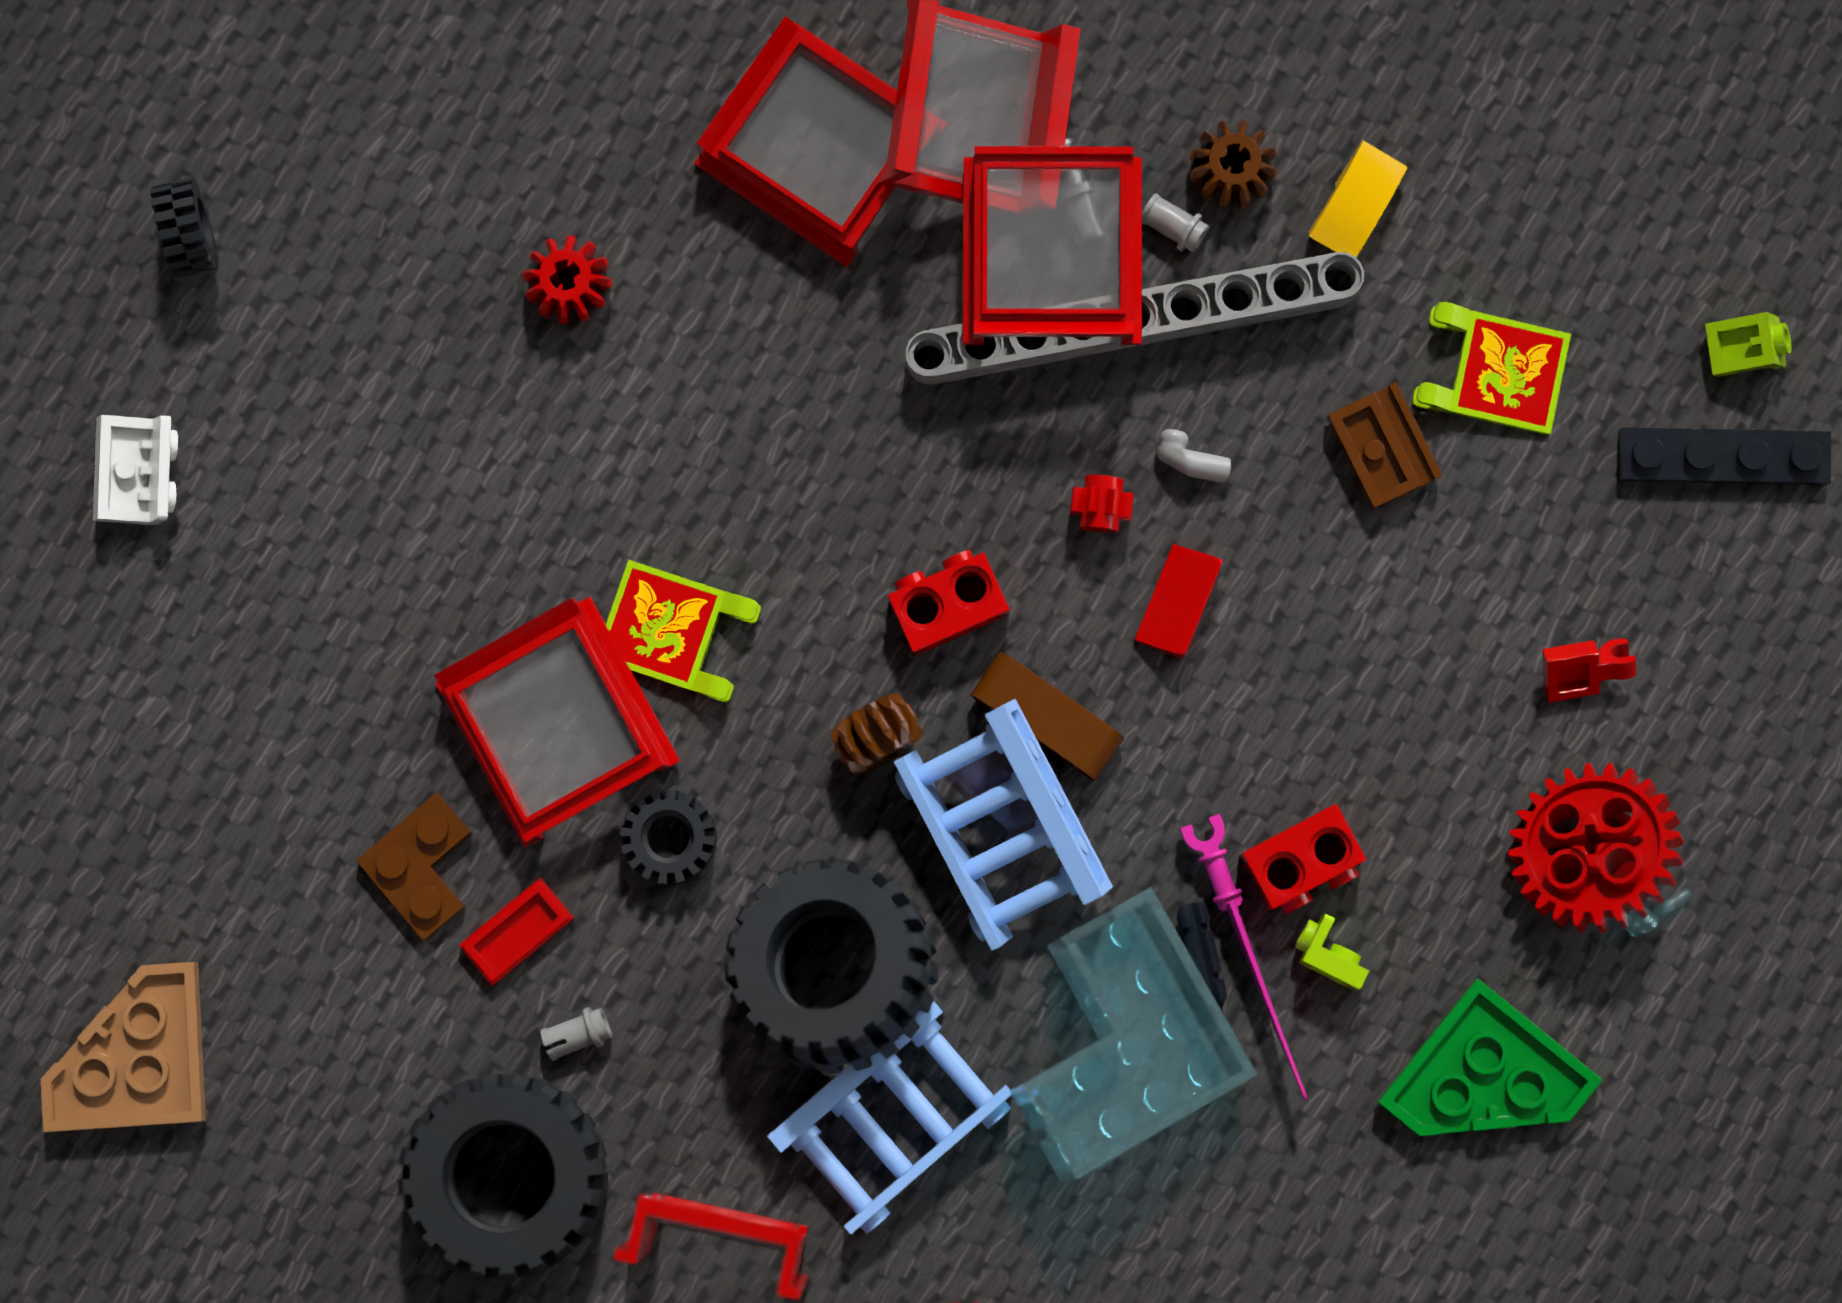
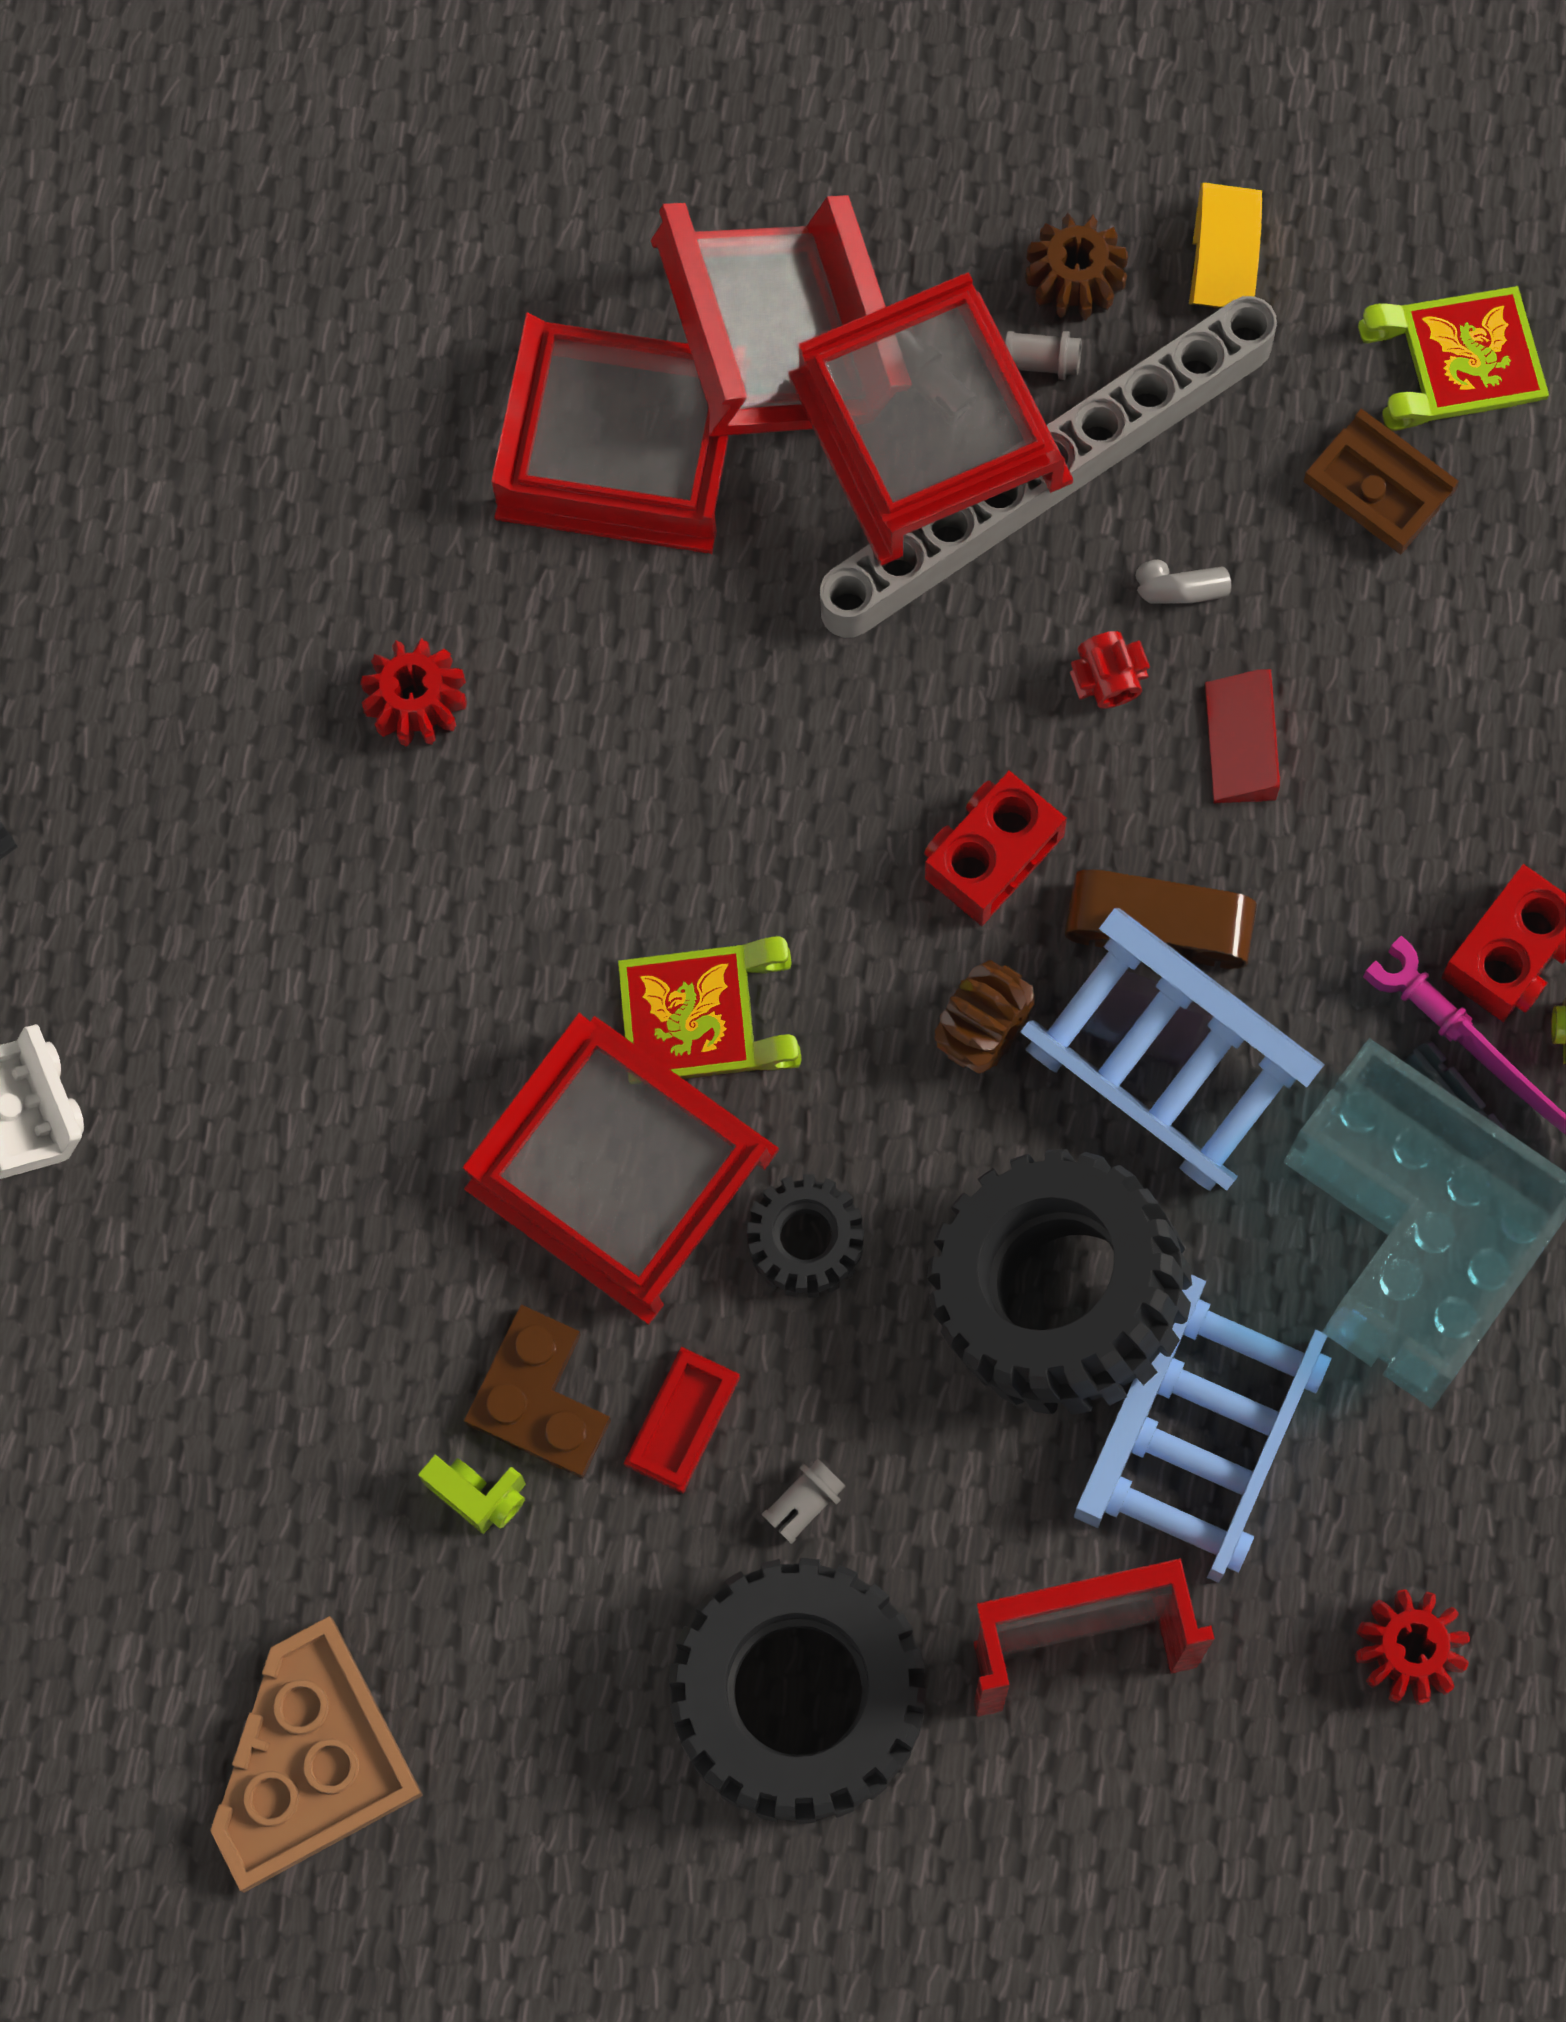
camera: 25 degrees left, 10 degrees down
(329, 912) = (461, 1487): none -> lime bracket

